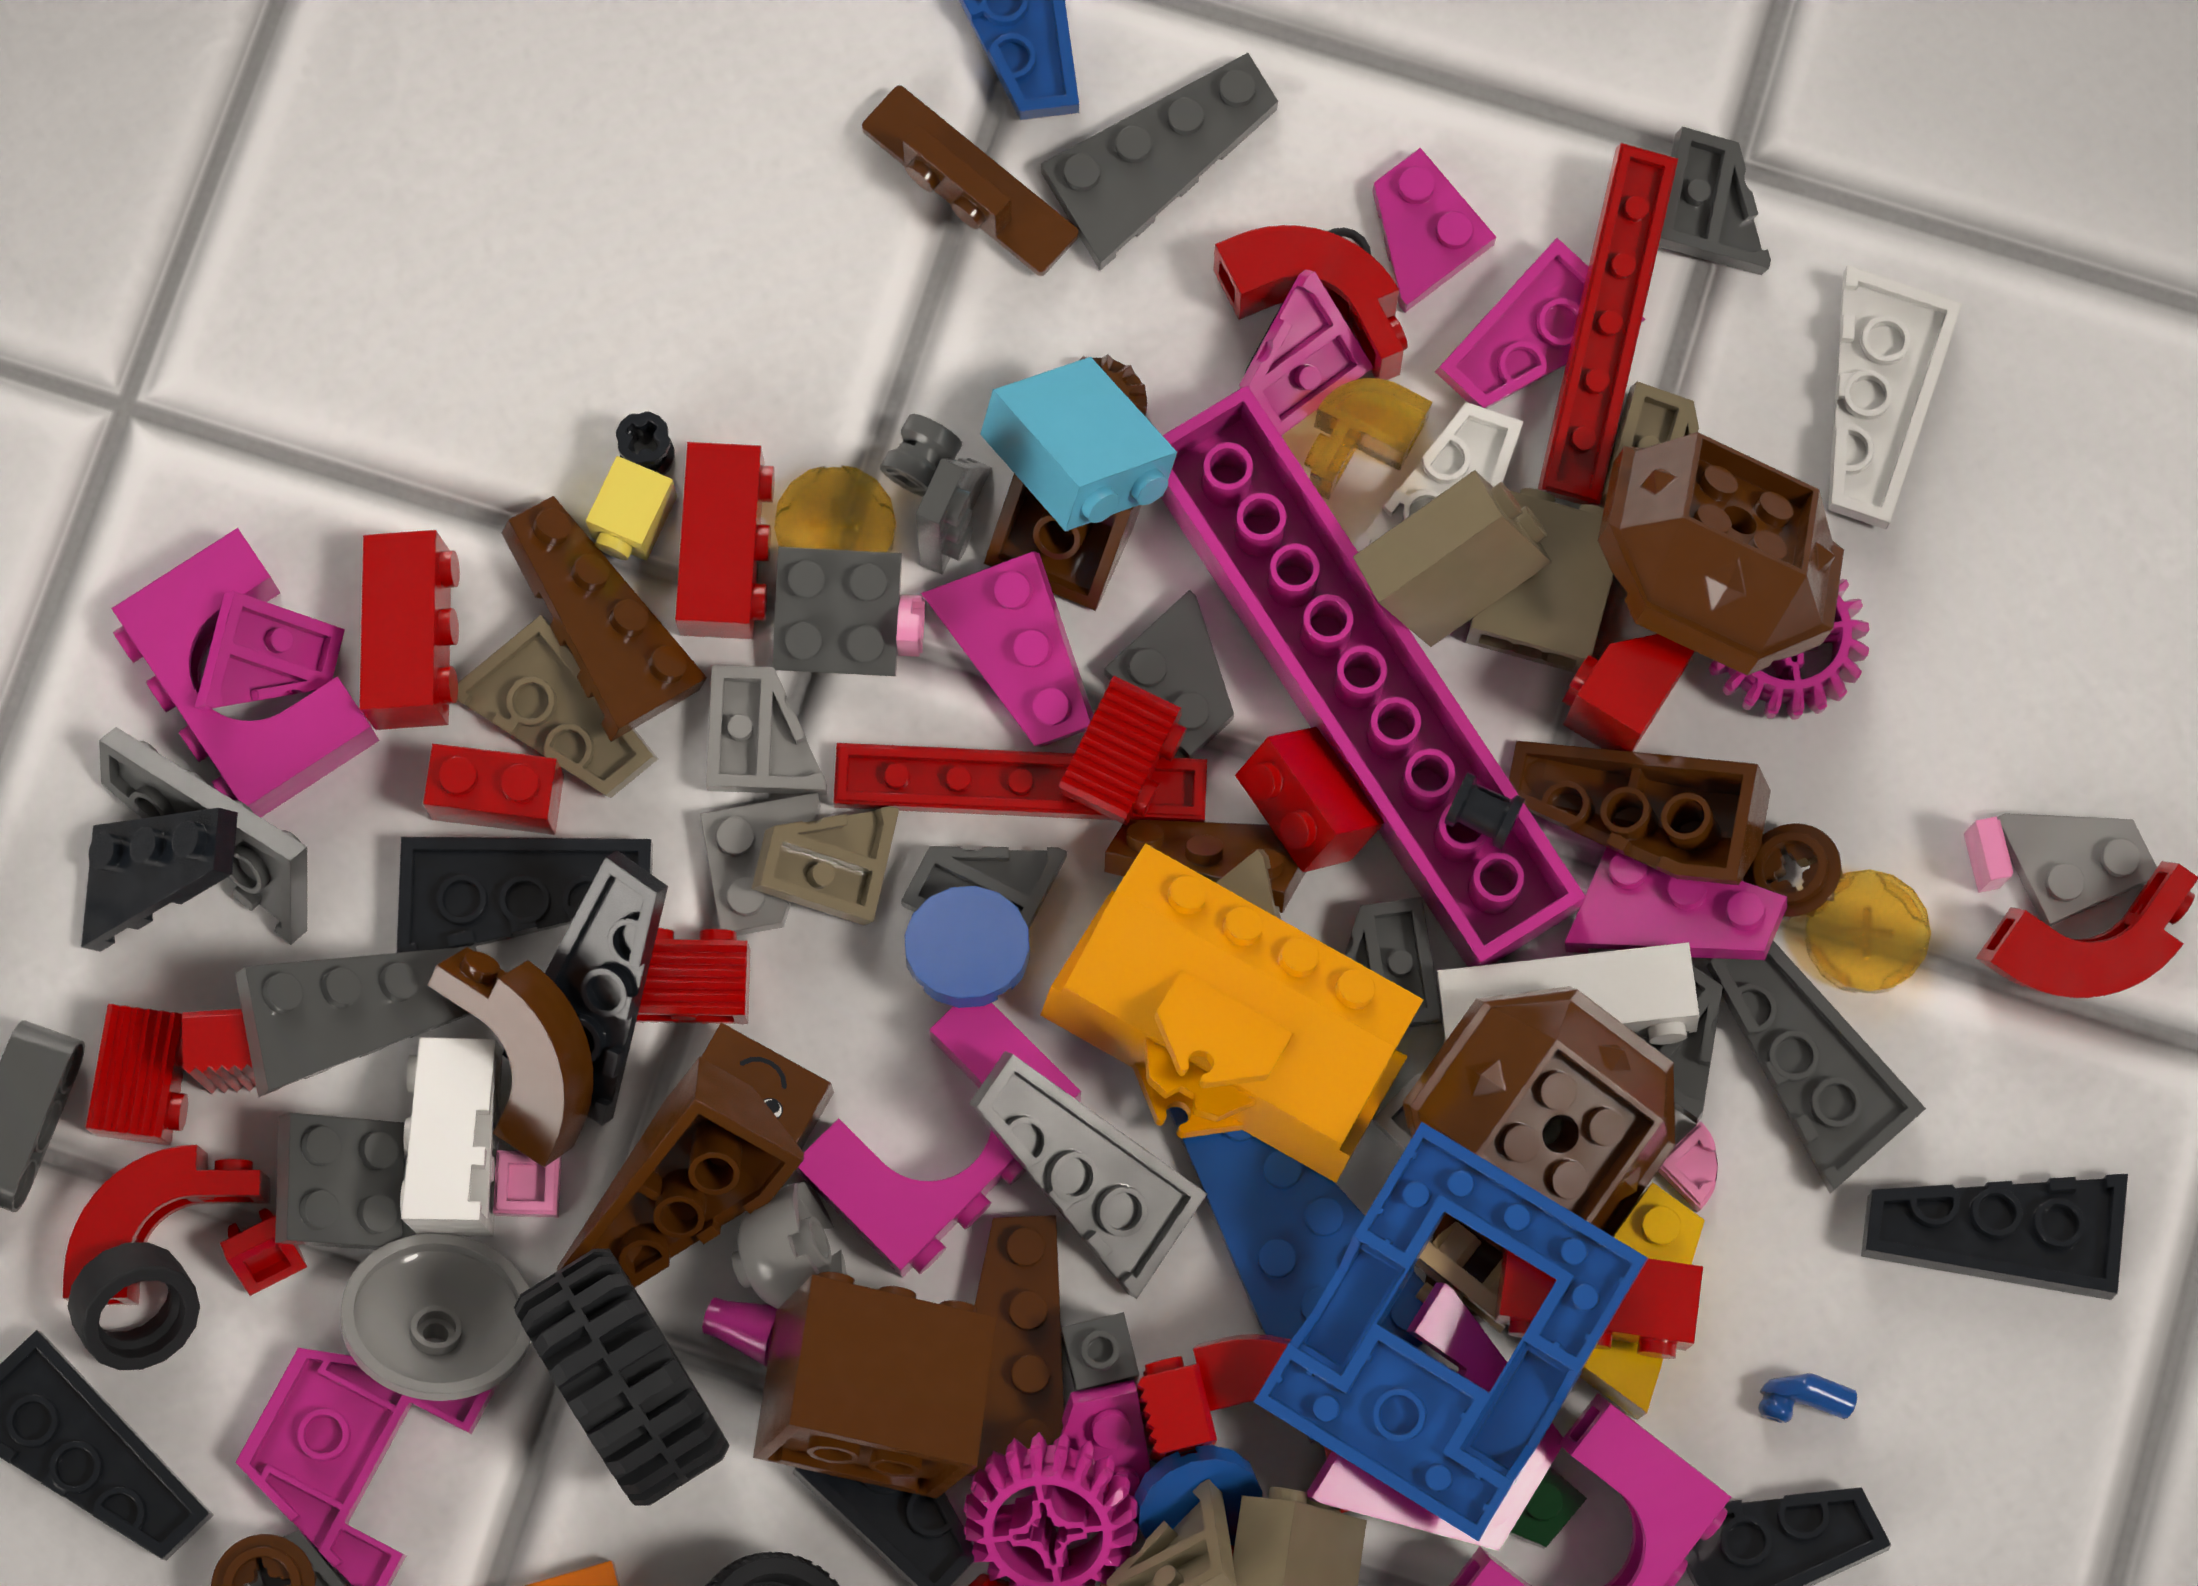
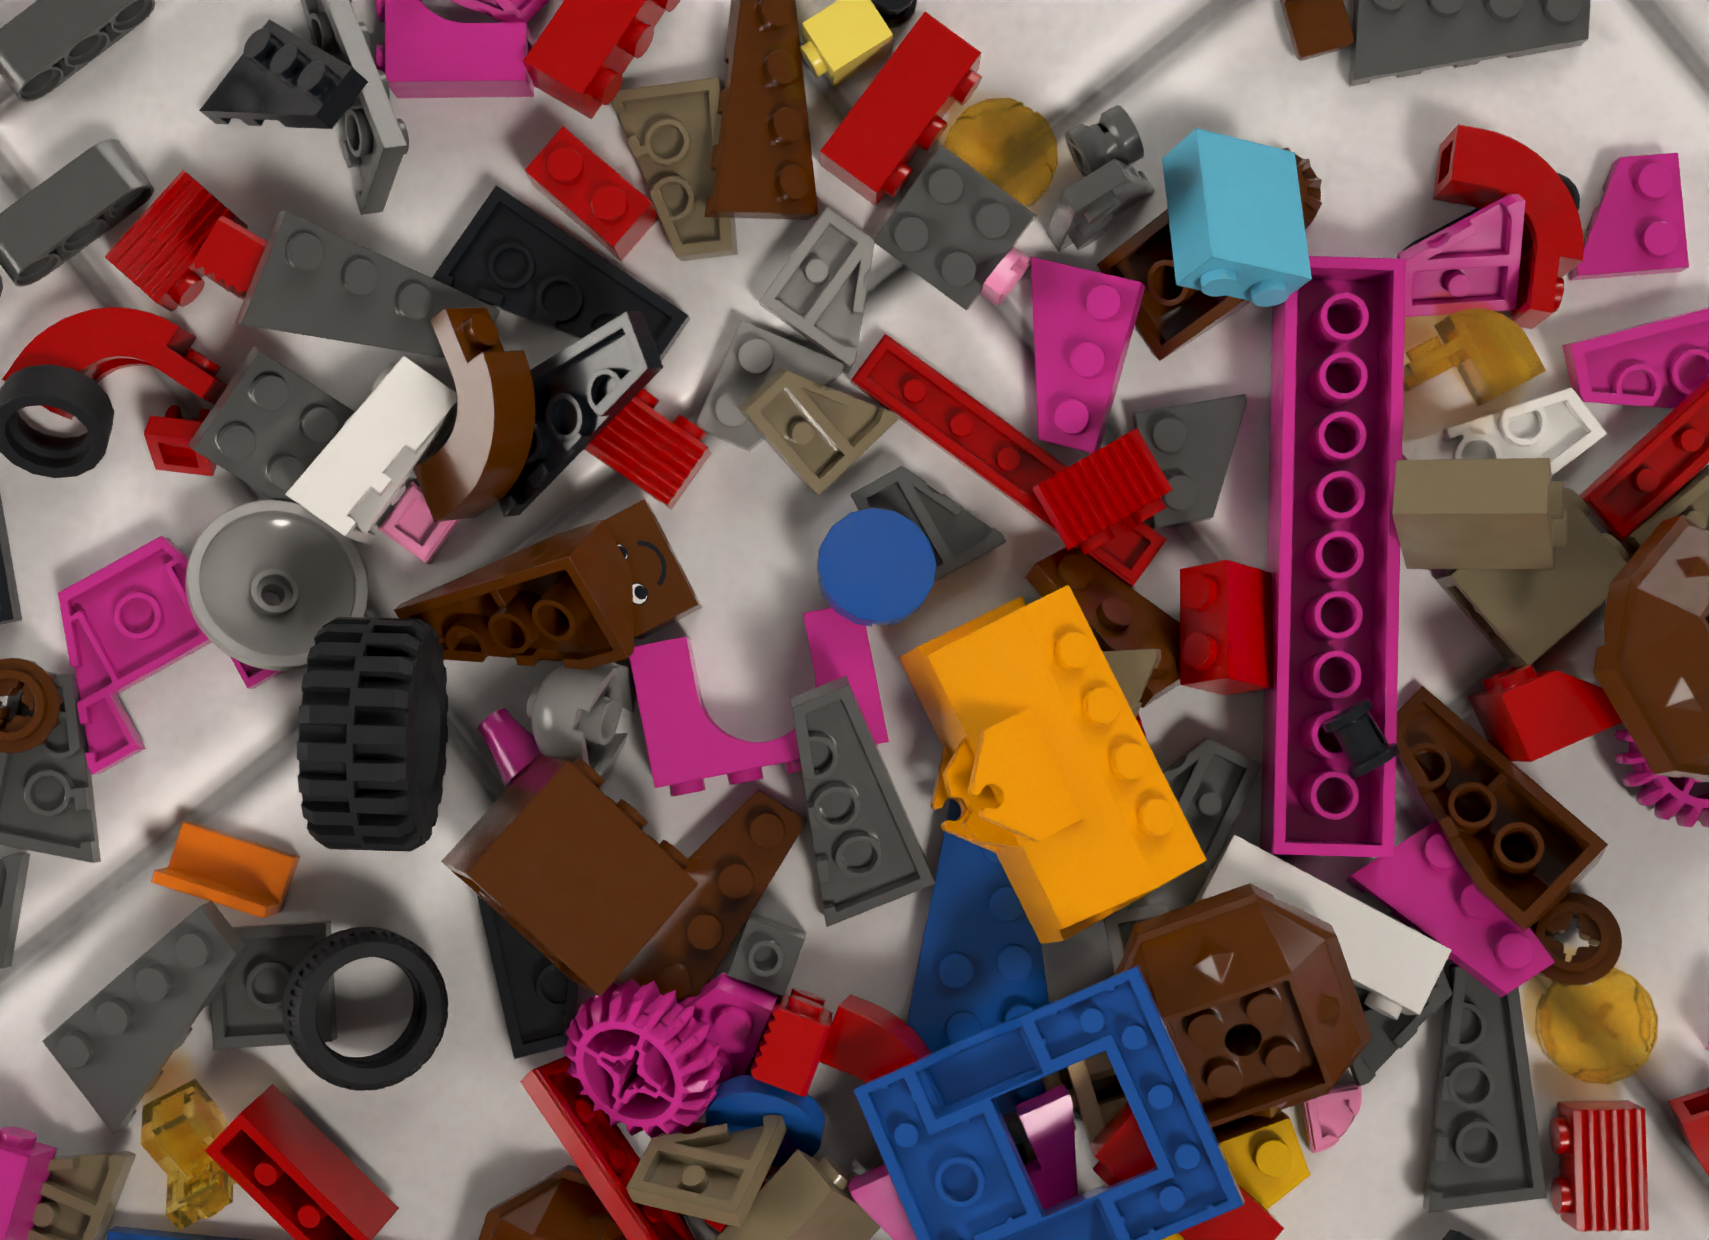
camera: 40 degrees right, 10 degrees up
(1952, 1049) = (1600, 1165): none -> red brick

